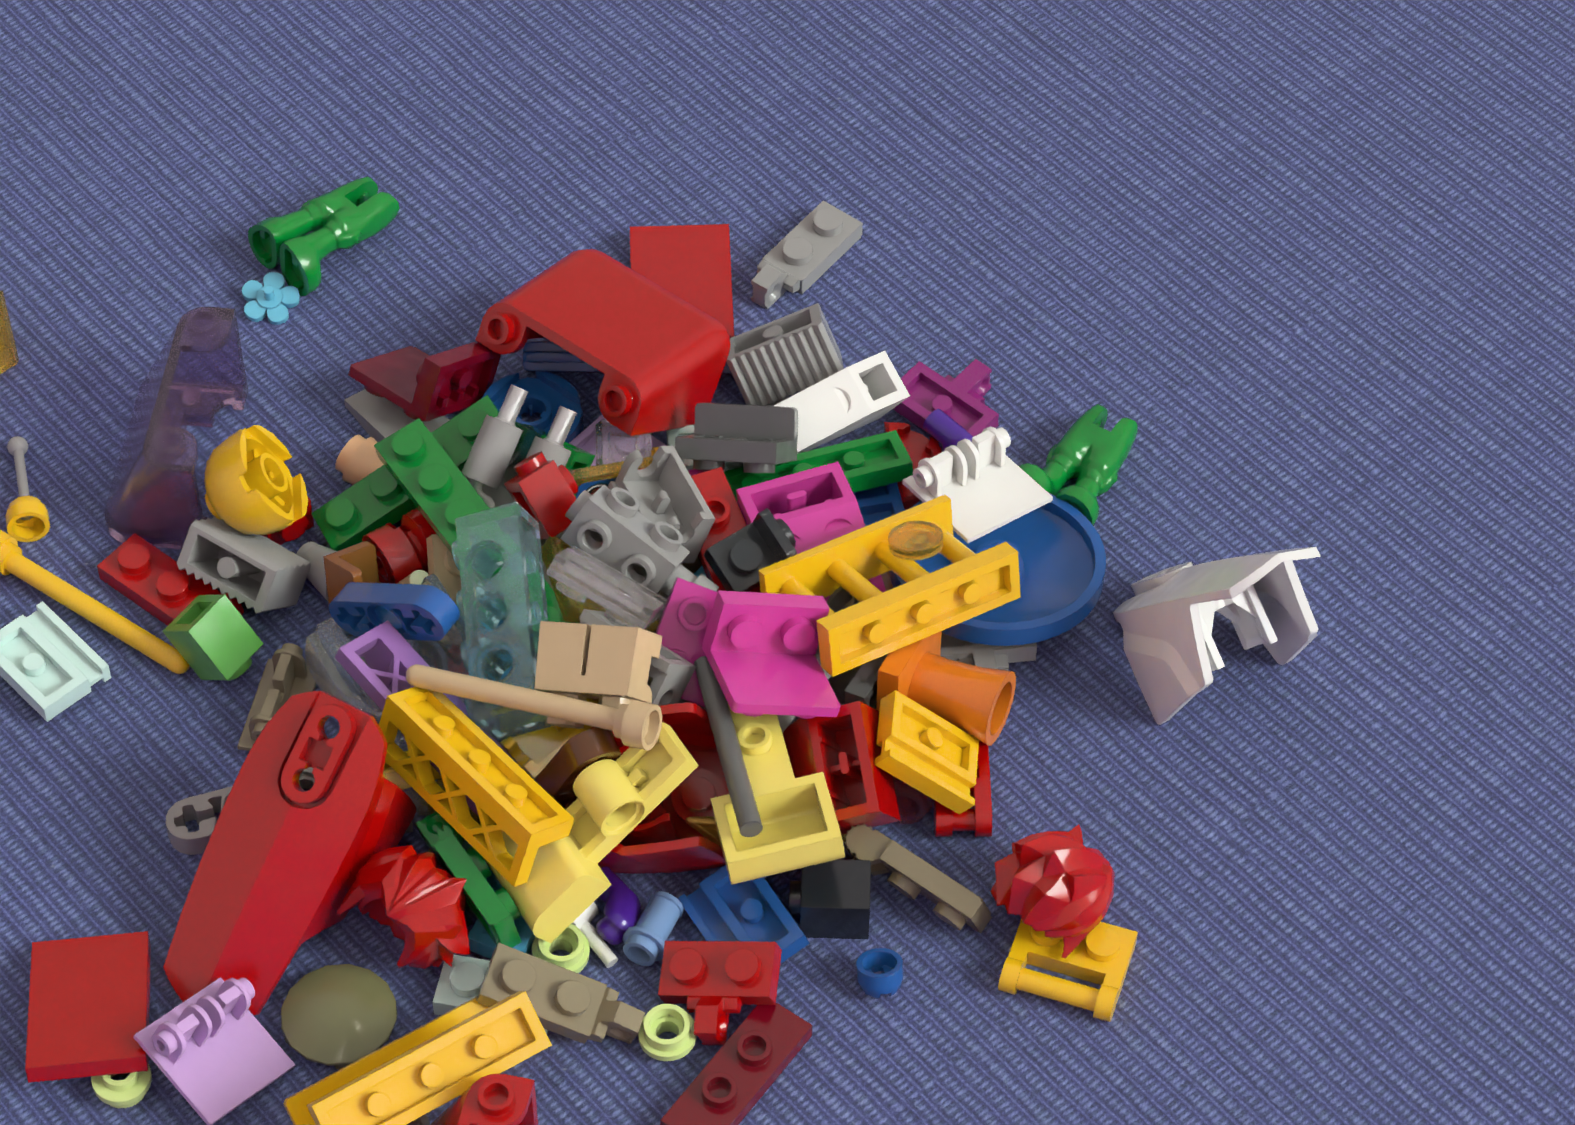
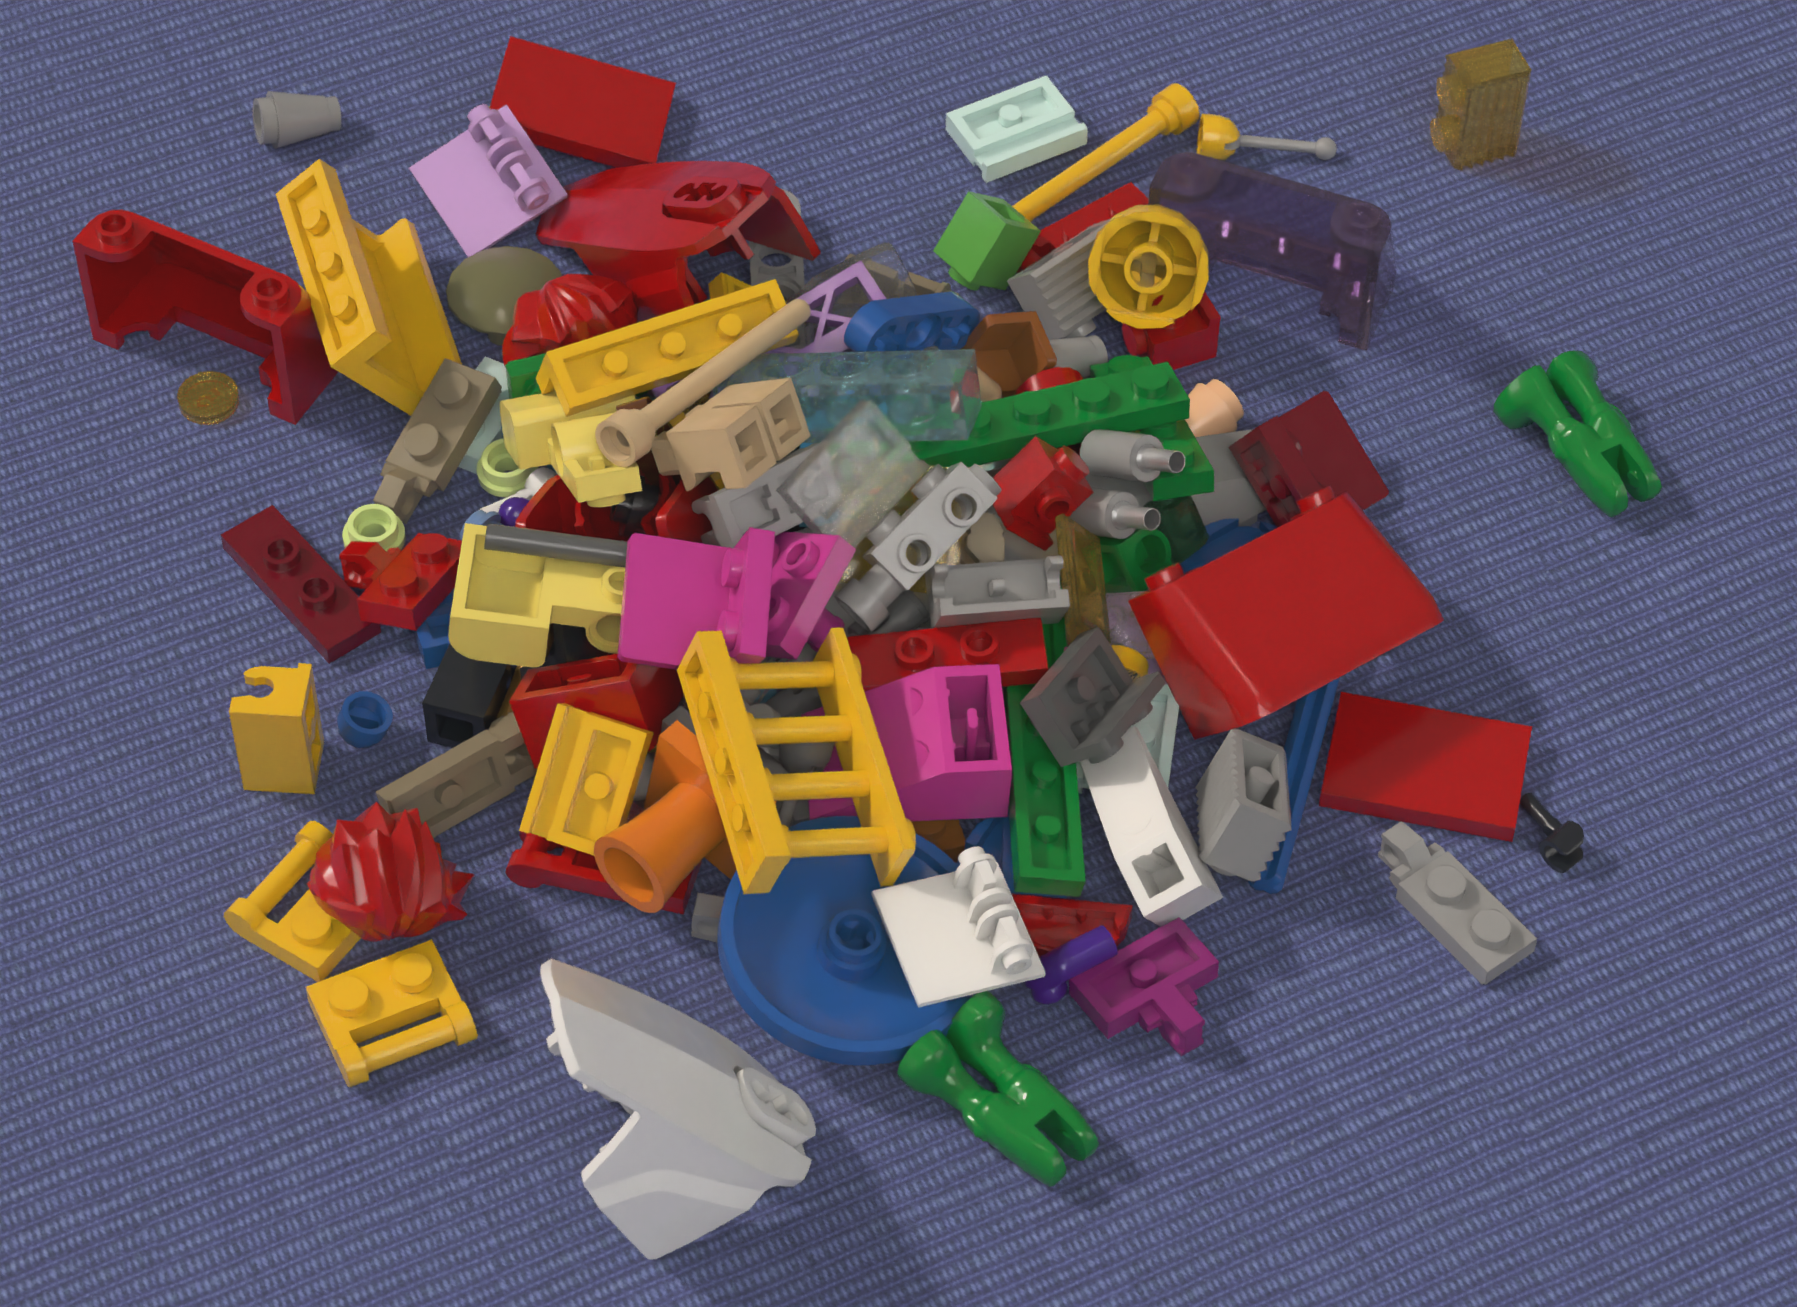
camera: 105 degrees right, 0 degrees up
(269, 299) = (1491, 378): medium azure plant -> none
(726, 198) = (1562, 845): none -> black hand
(749, 550) = (890, 651): black bracket -> none
(915, 540) = (847, 795): clear yellow piece -> none
(934, 1001) = (279, 734): none -> yellow hinge
(1145, 892) = (384, 998): none -> yellow plate

